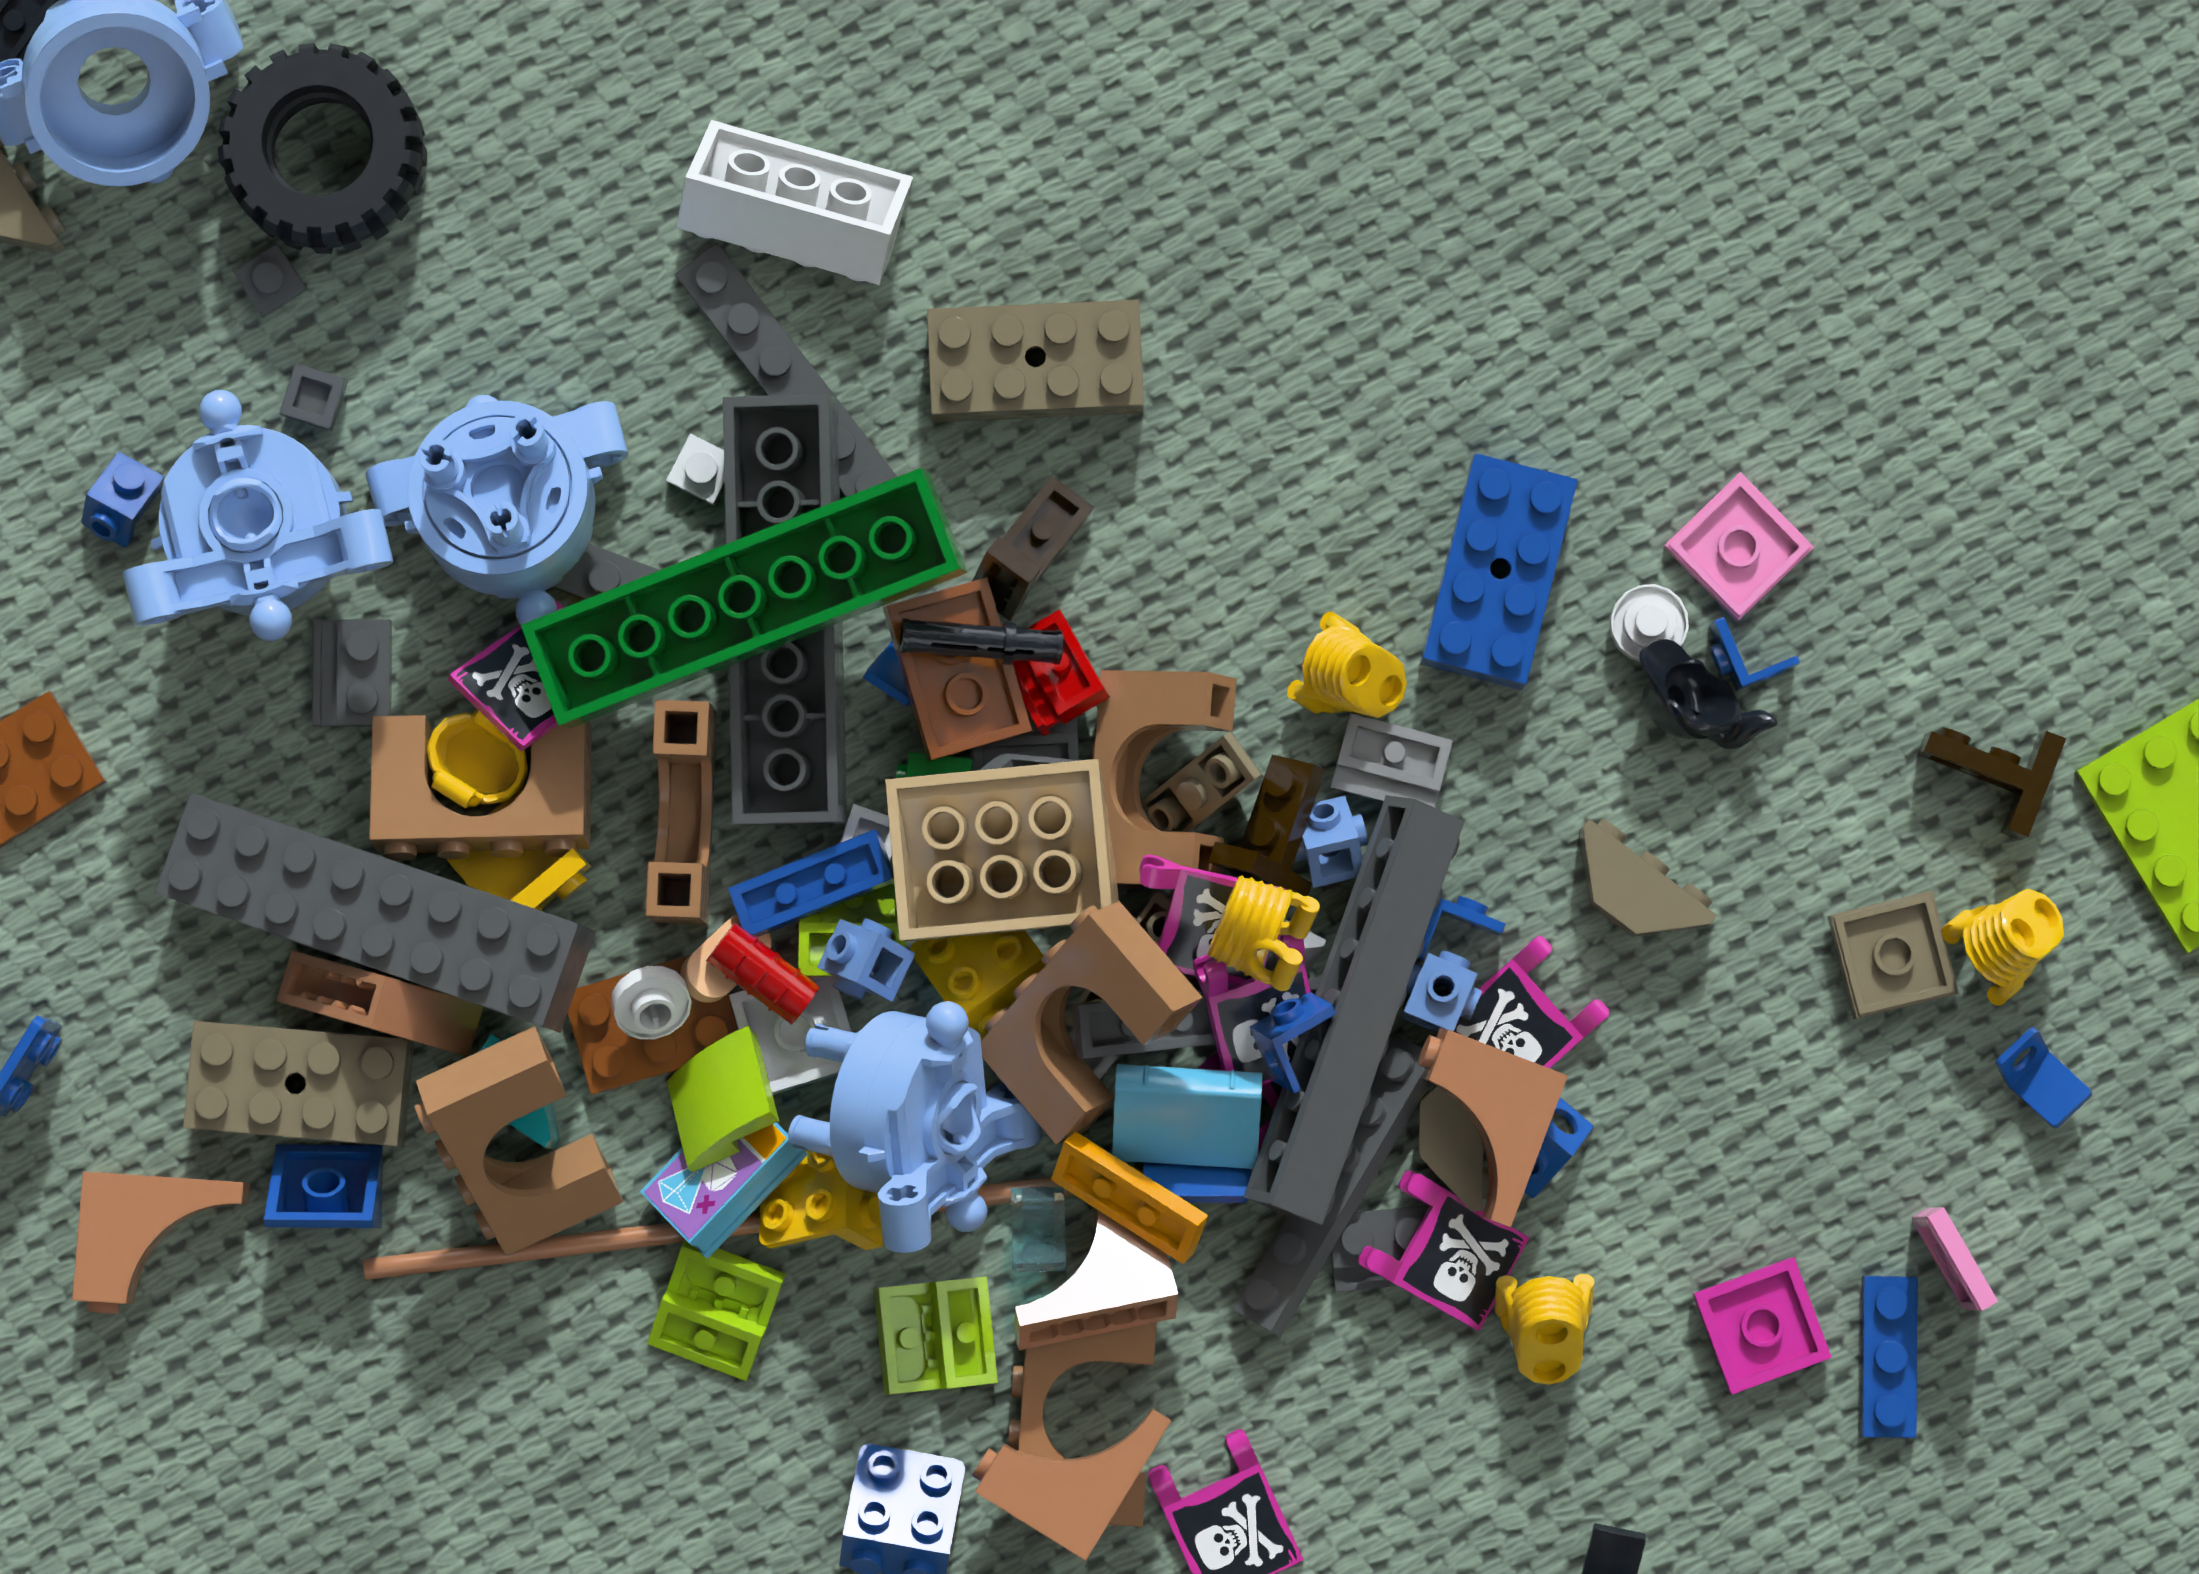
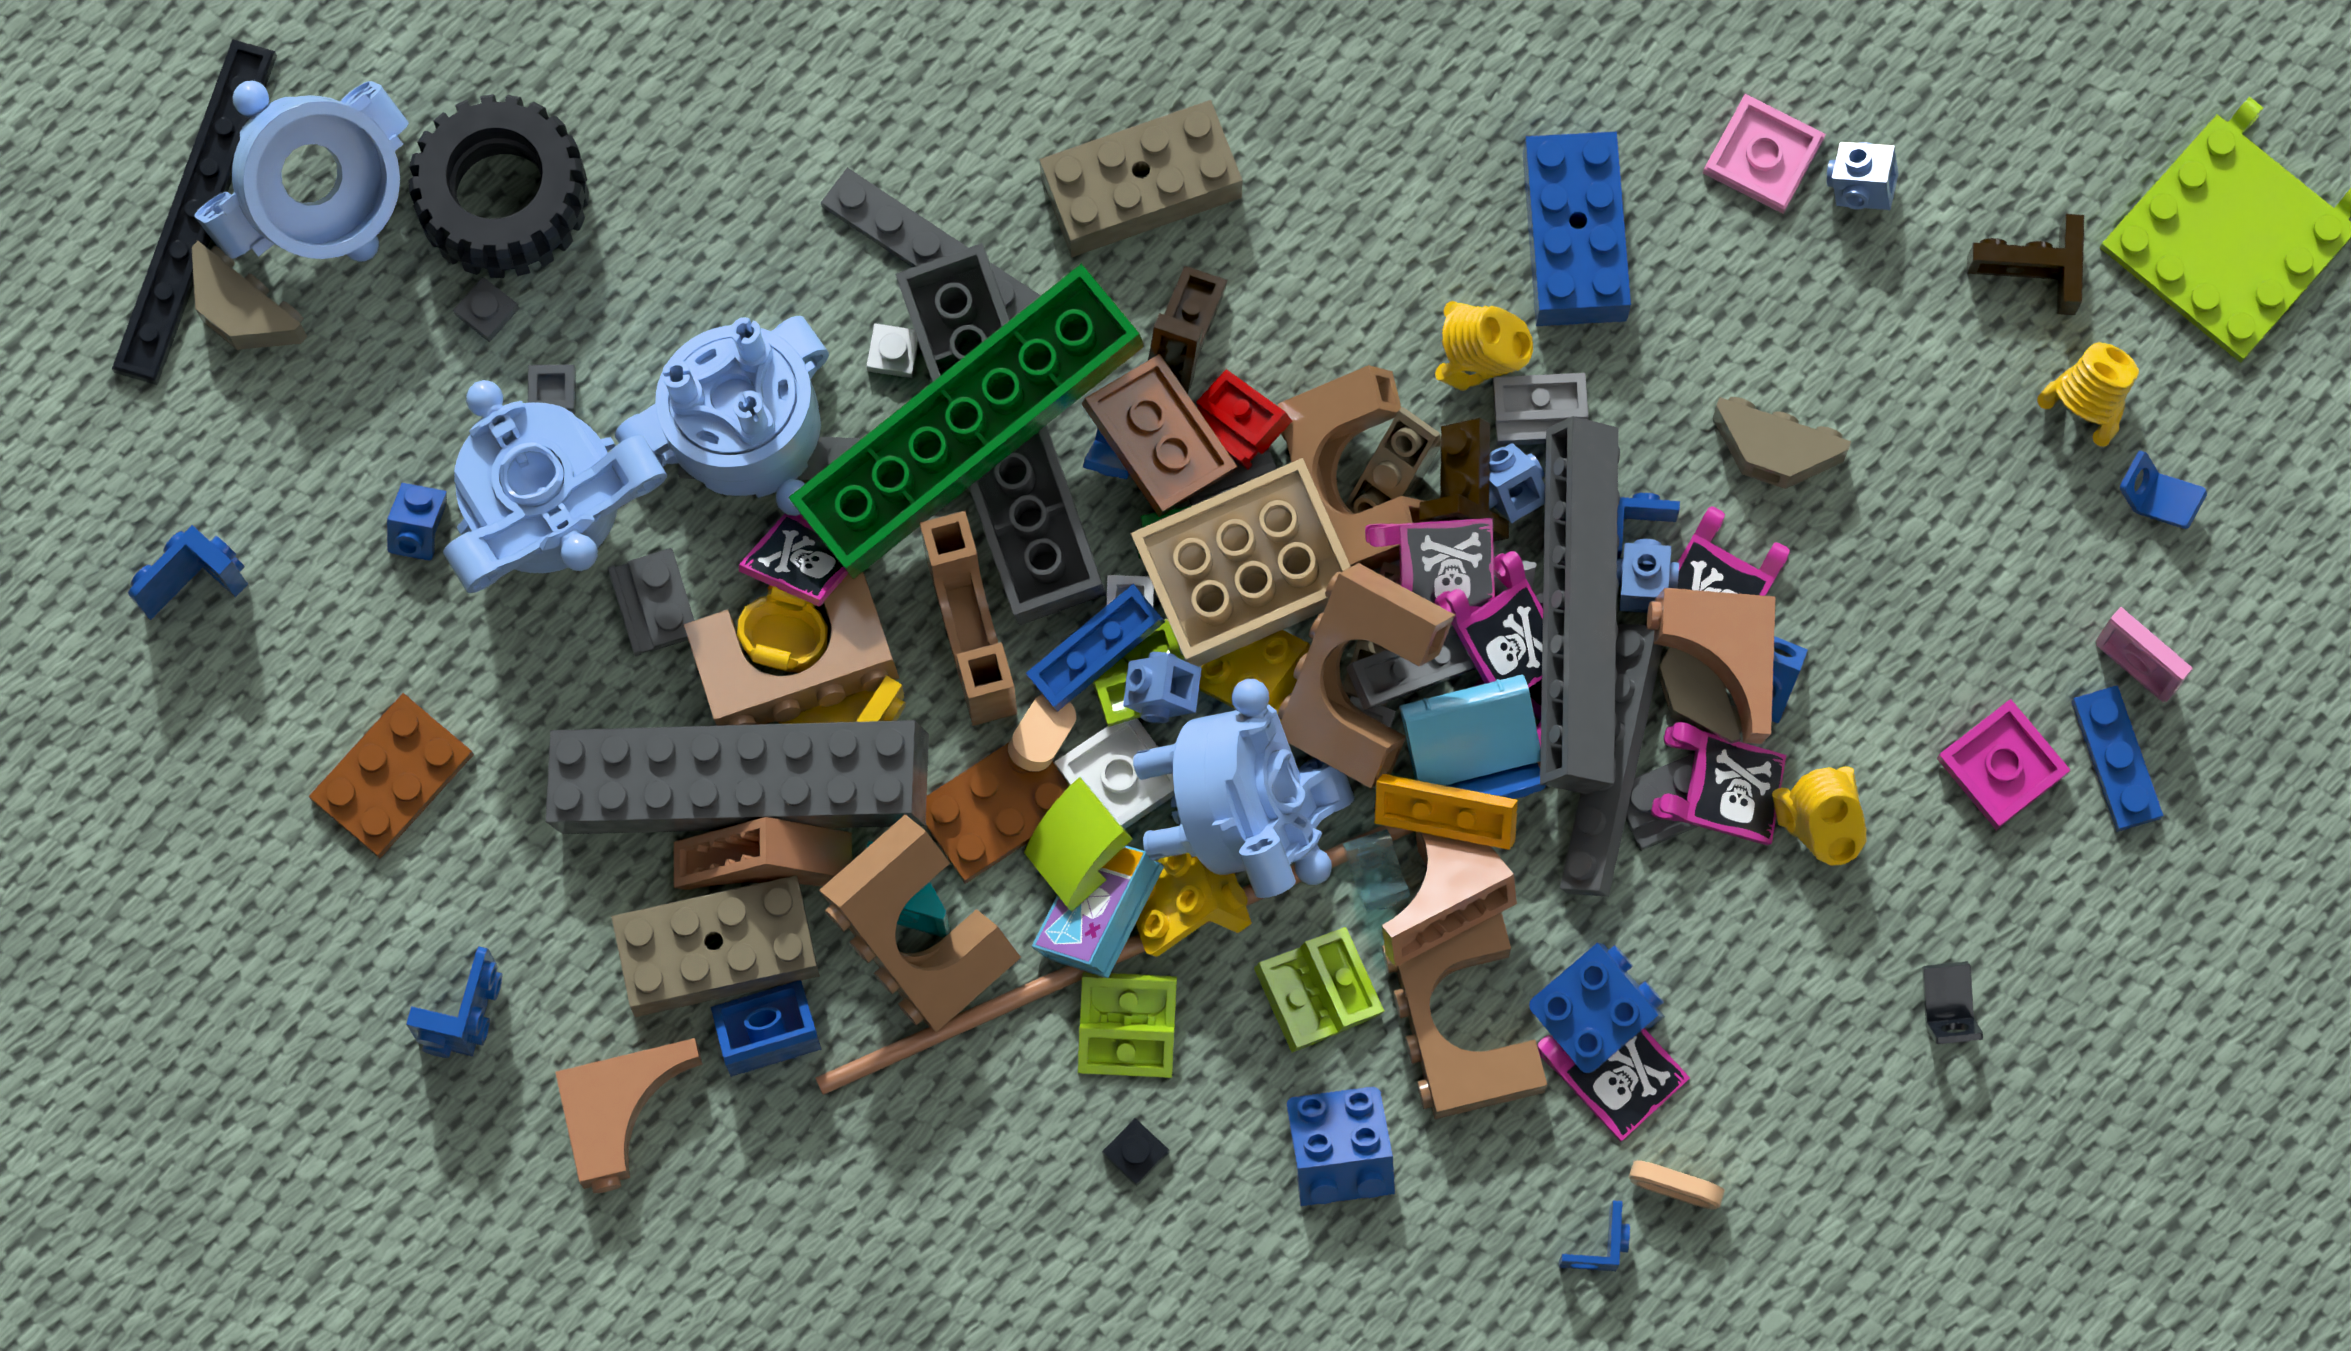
camera: 15 degrees left, 10 degrees down
(651, 1002) = (992, 781): white plate -> none
(681, 1450) = (1135, 1152): none -> black plate
(763, 973) = (1078, 729): red axle -> none
(793, 202) = (900, 116): white slope -> none
(991, 642) = (1191, 399): black pin -> none
(1069, 1497) = (1476, 1074): nougat arch -> none
(1228, 1456) = (1596, 1007): none -> blue bracket
(1251, 928) = (1475, 543): yellow piece -> none
(1282, 1025) = (1519, 639): blue bracket -> none
(1646, 616) = (1712, 233): white plate -> none
(1693, 701) = (1773, 283): black hair -> none
(1728, 659) = (1788, 241): blue bracket -> none
(1837, 612) = (1863, 175): none -> medium blue brick
(1892, 954) = (2004, 434): dark tan plate -> none

